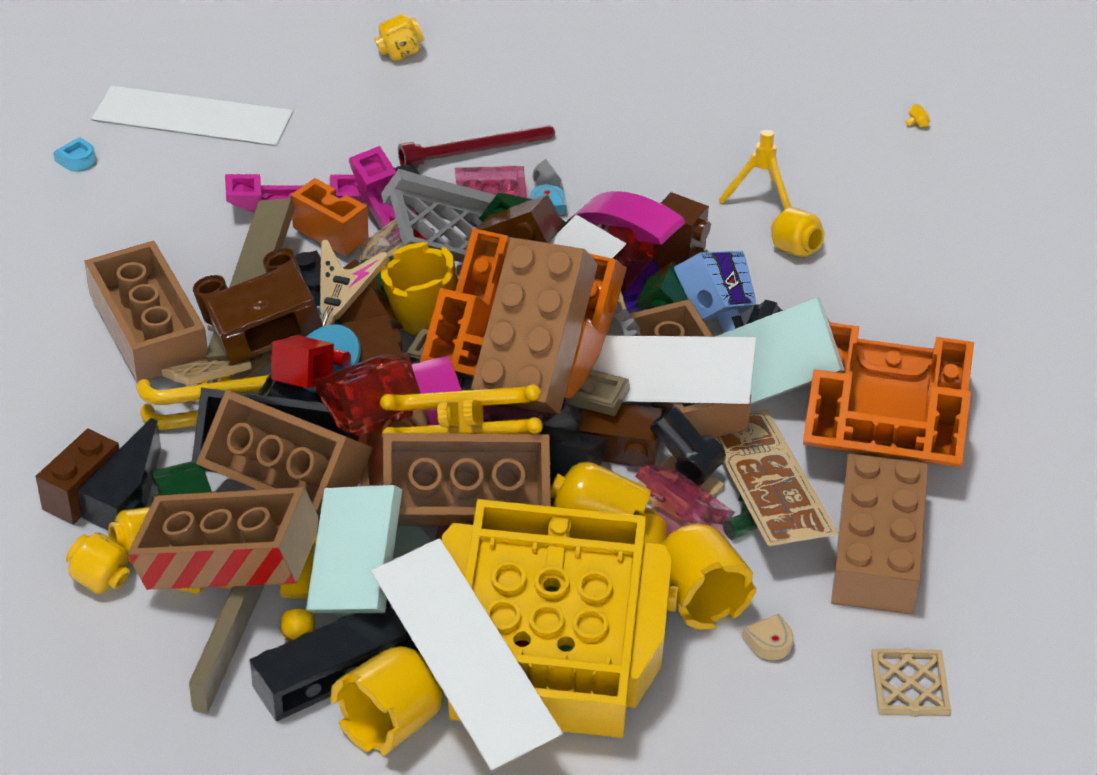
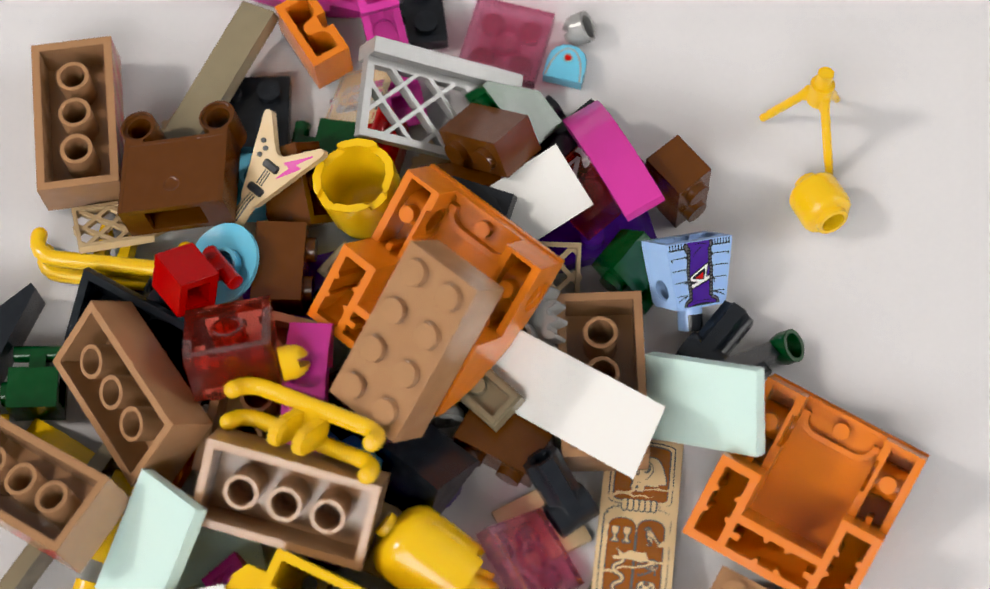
camera: 25 degrees right, 25 degrees up
(429, 378) = (288, 361): none -> yellow hinge

